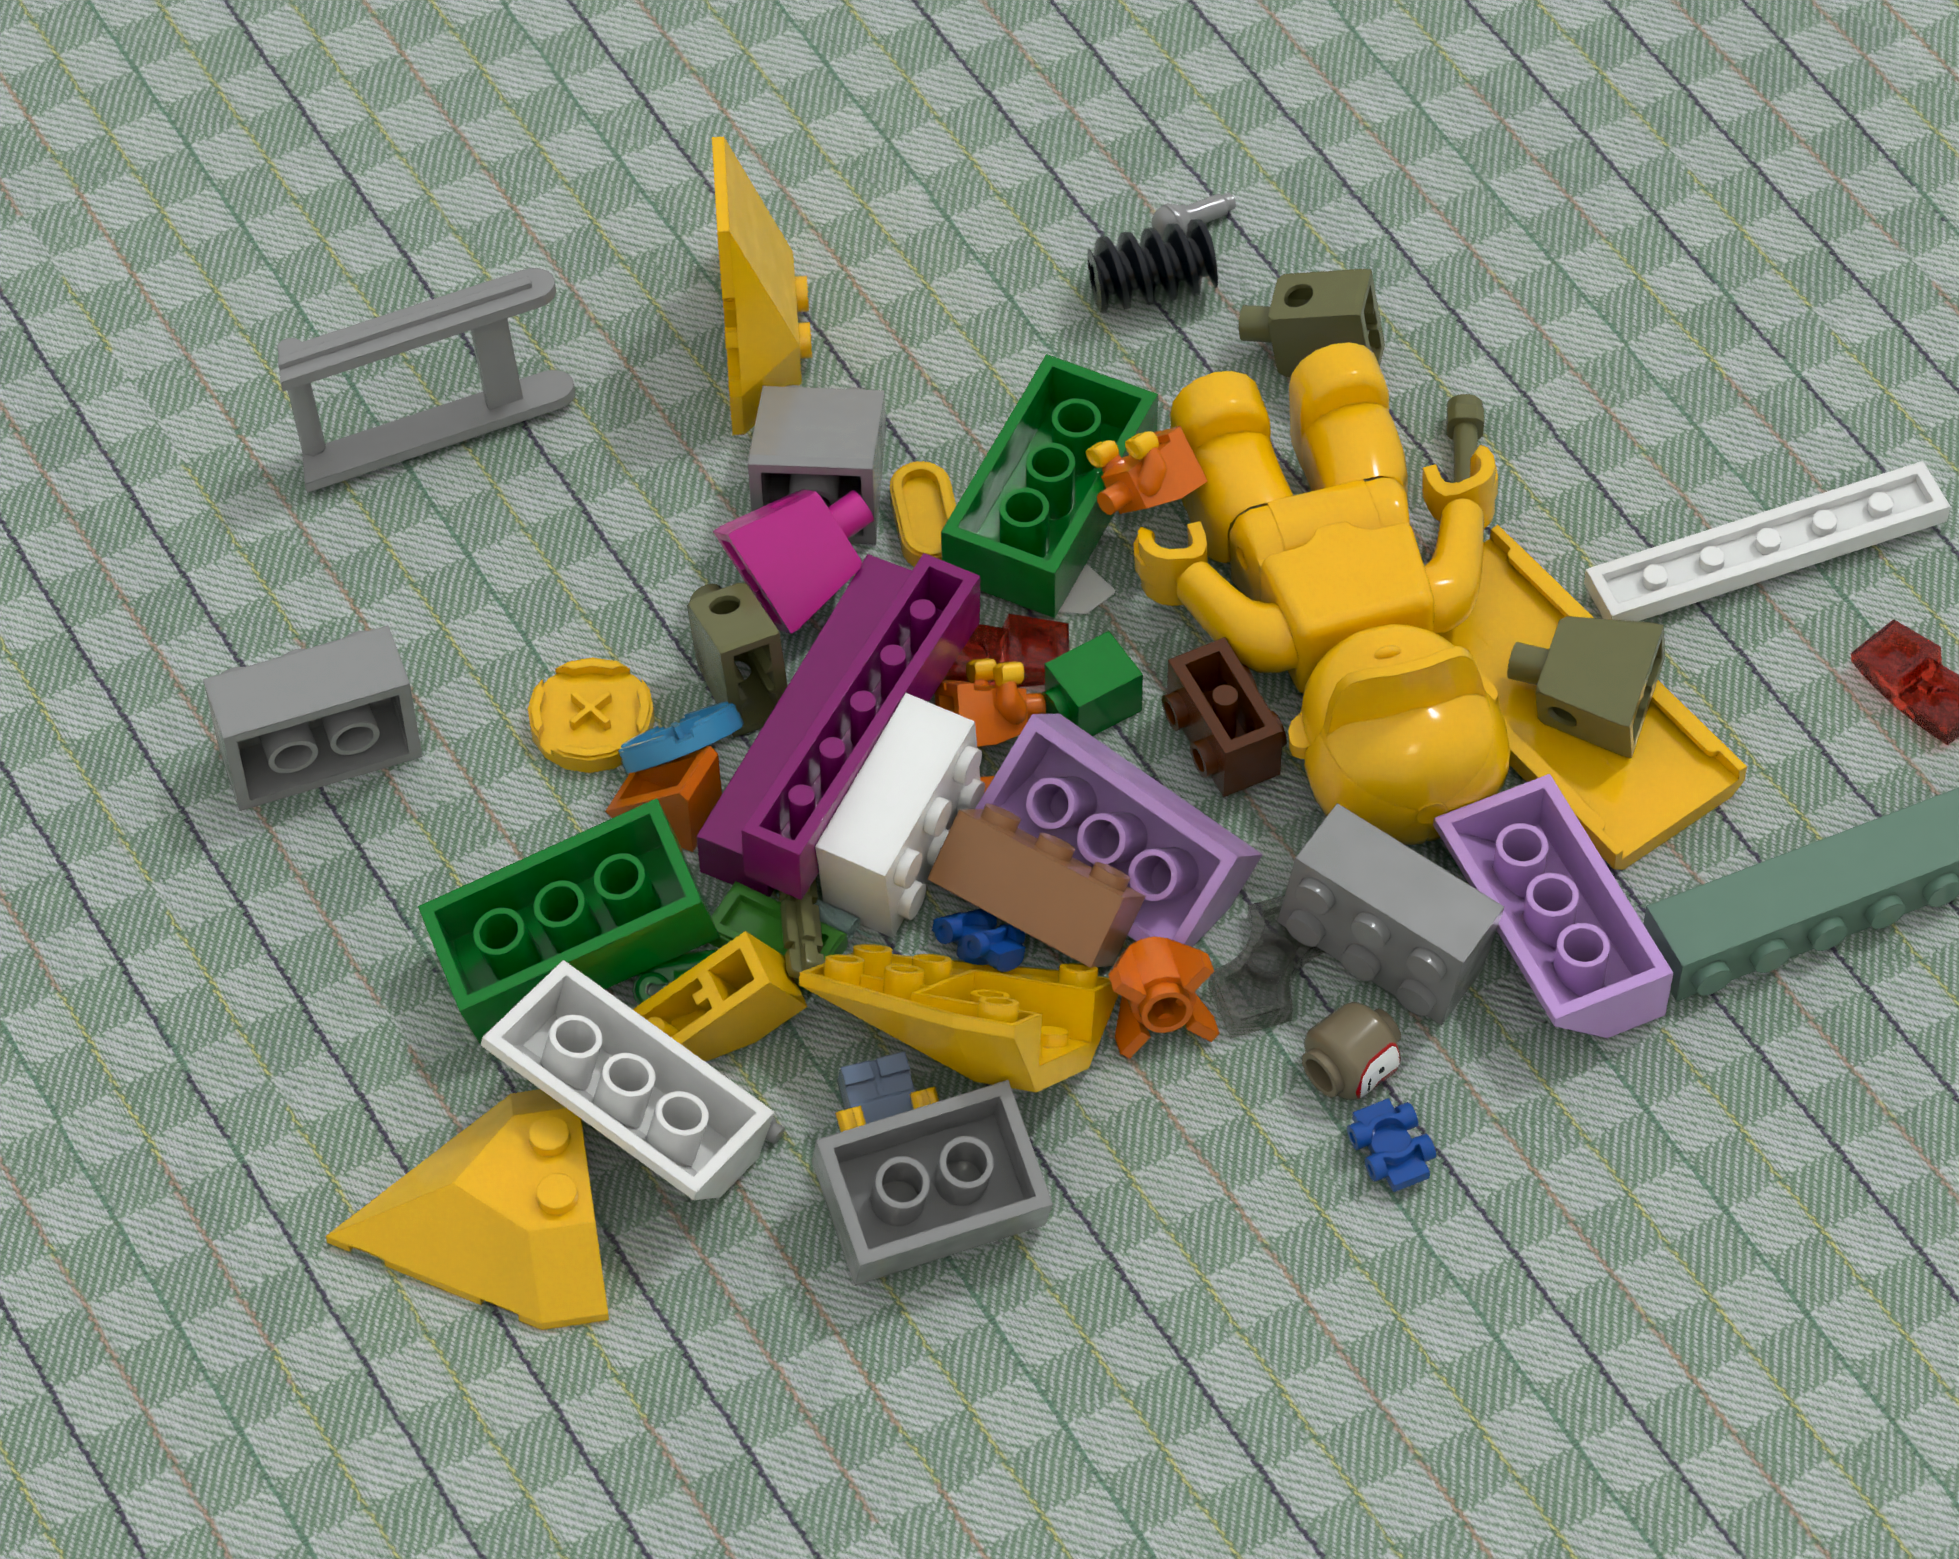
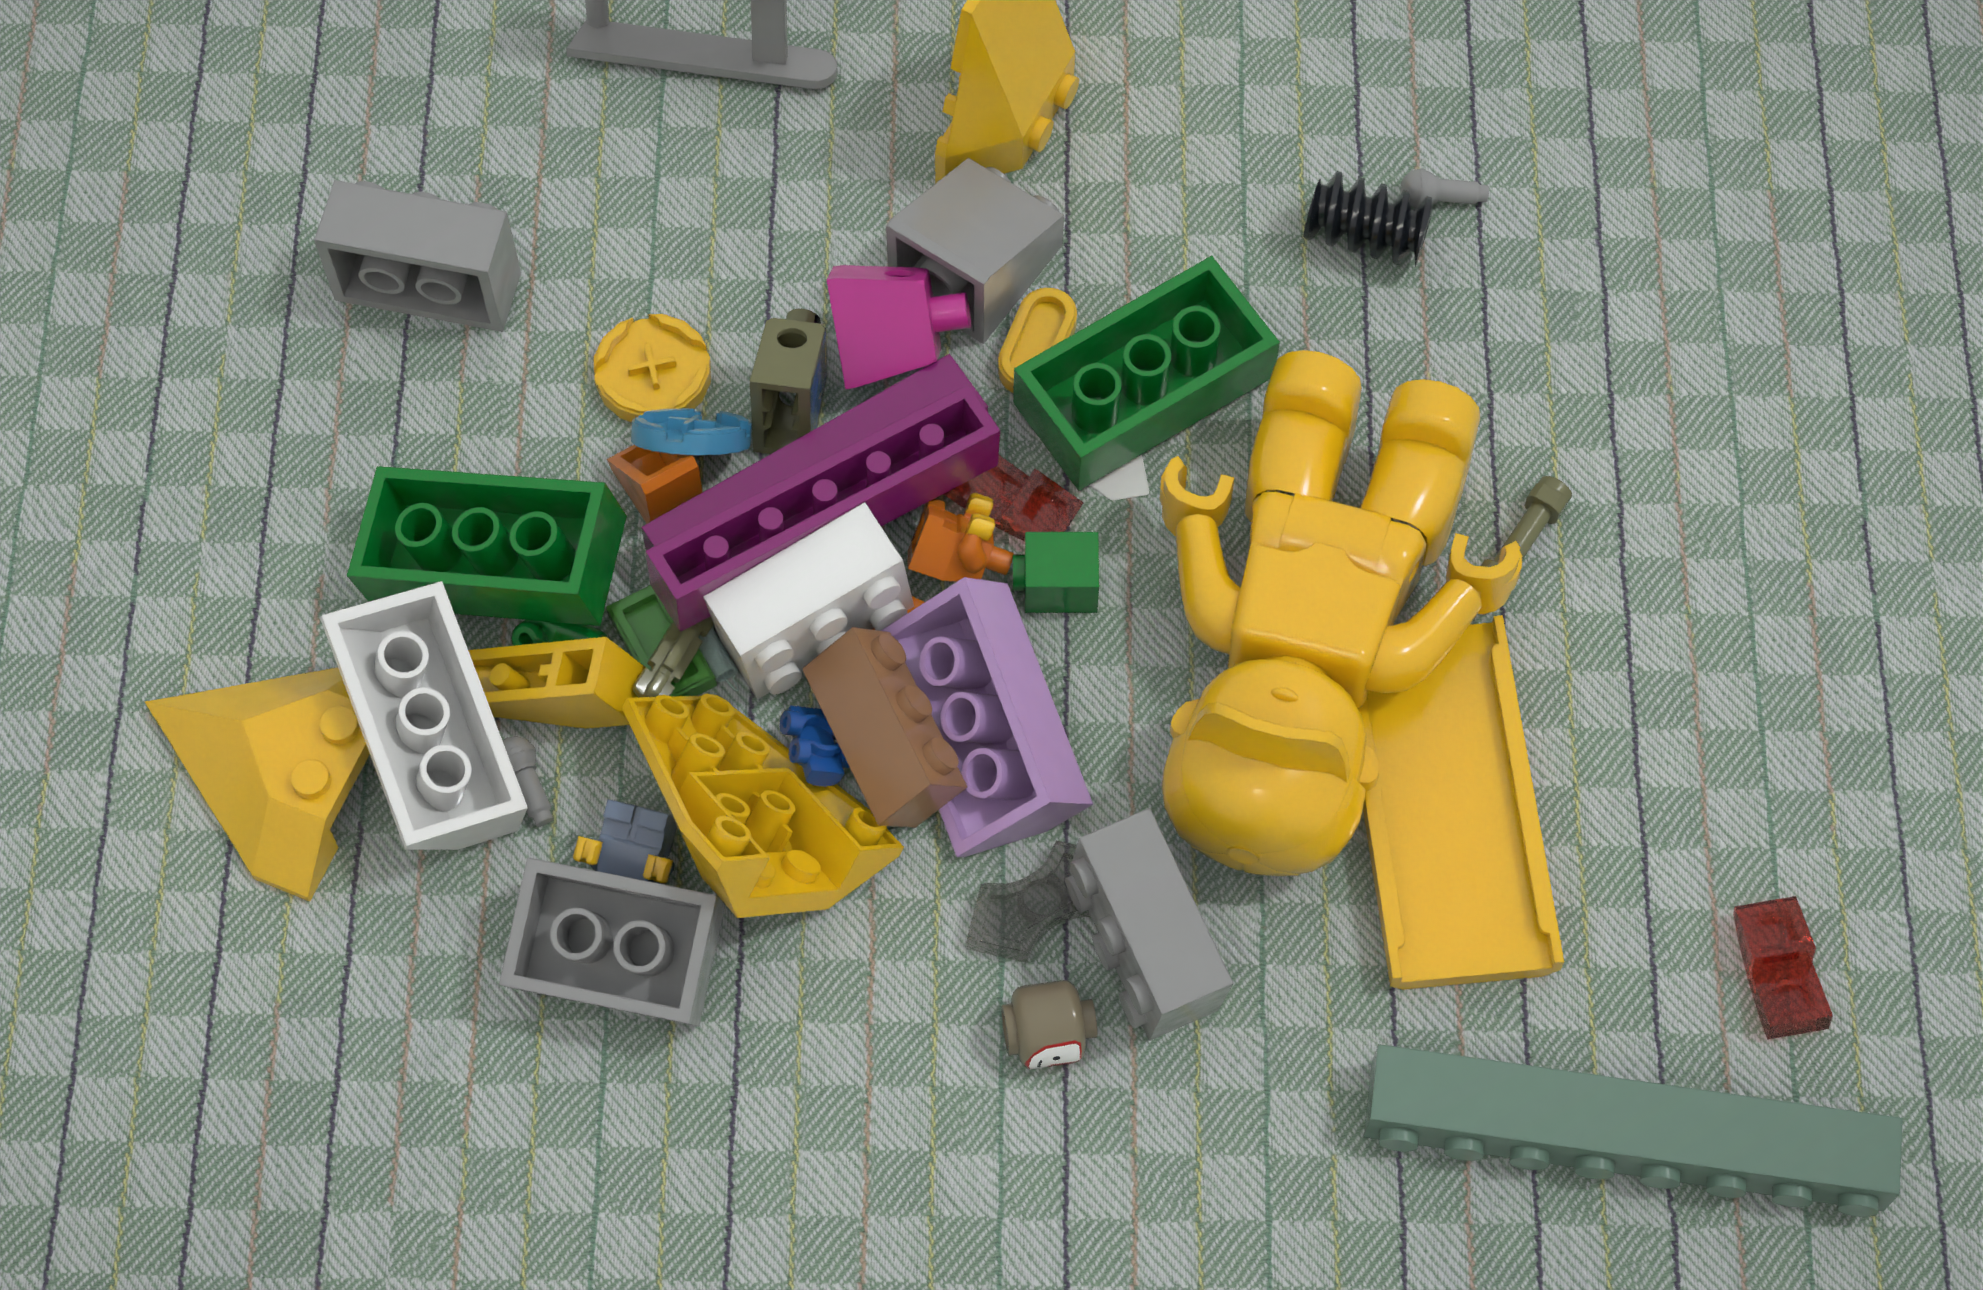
camera: 30 degrees right, 10 degrees up
(1154, 473) = (1212, 410): orange piece -> none
(1159, 993) = (921, 878): orange brick -> none
(1223, 717) = (1145, 649): reddish brown brick -> none
(1315, 312) = (1474, 350): olive torso -> none
(1391, 1148) = (1023, 1139): blue piece -> none
(1561, 909) = (1295, 1002): lavender slope -> none
(1594, 678) = (1480, 807): olive torso -> none
(1767, 544) = (1732, 763): white plate -> none

